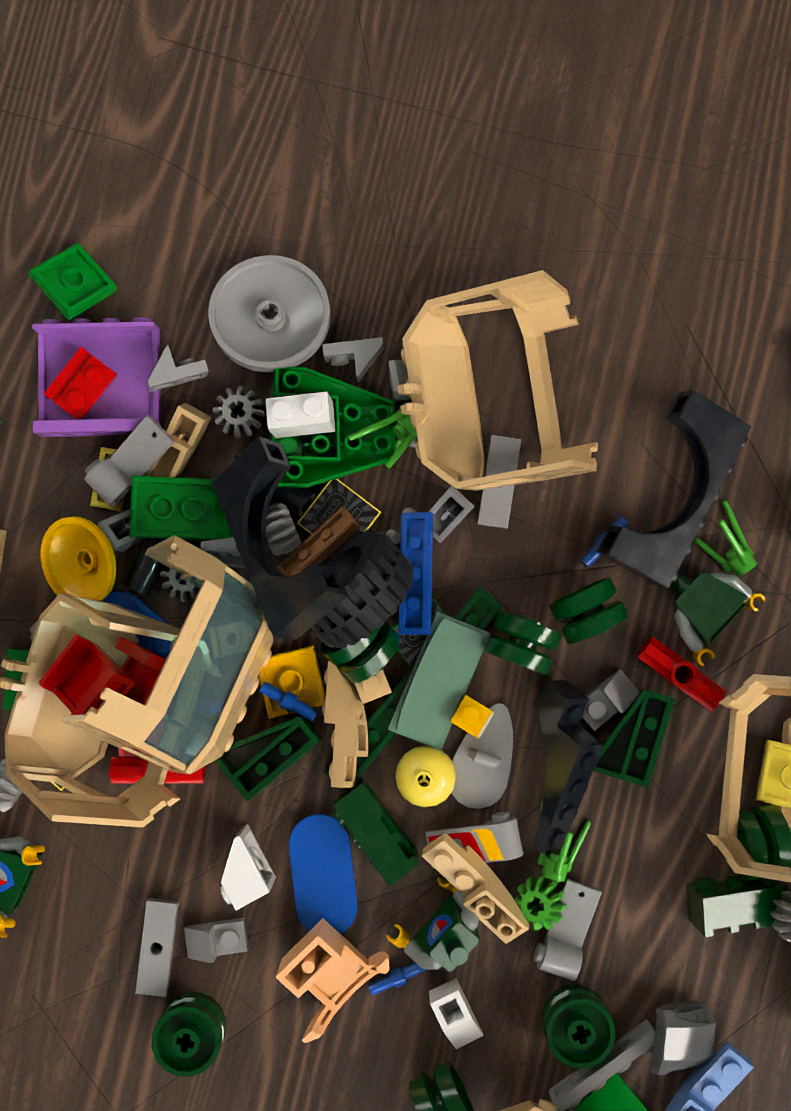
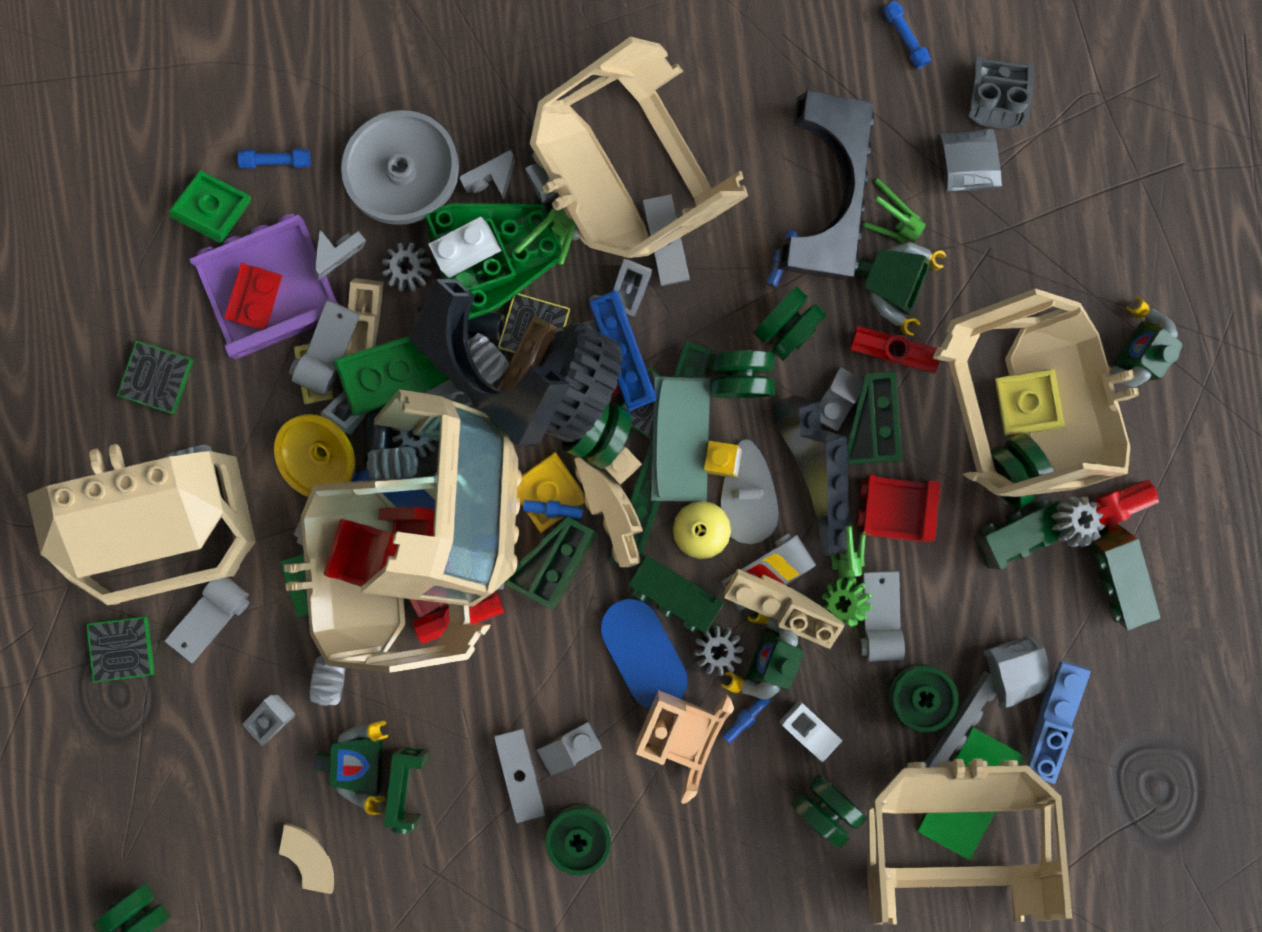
camera: 20 degrees left, 0 degrees up
(22, 947) = (395, 813): none -> dark green panel
(129, 250) = (249, 158): none -> blue bar
(148, 599) = (392, 463): none -> light grey gear
(246, 871) = (572, 673): white slope -> none
(396, 912) = (721, 660): none -> light grey gear
(625, 830) = (898, 509): none -> red panel

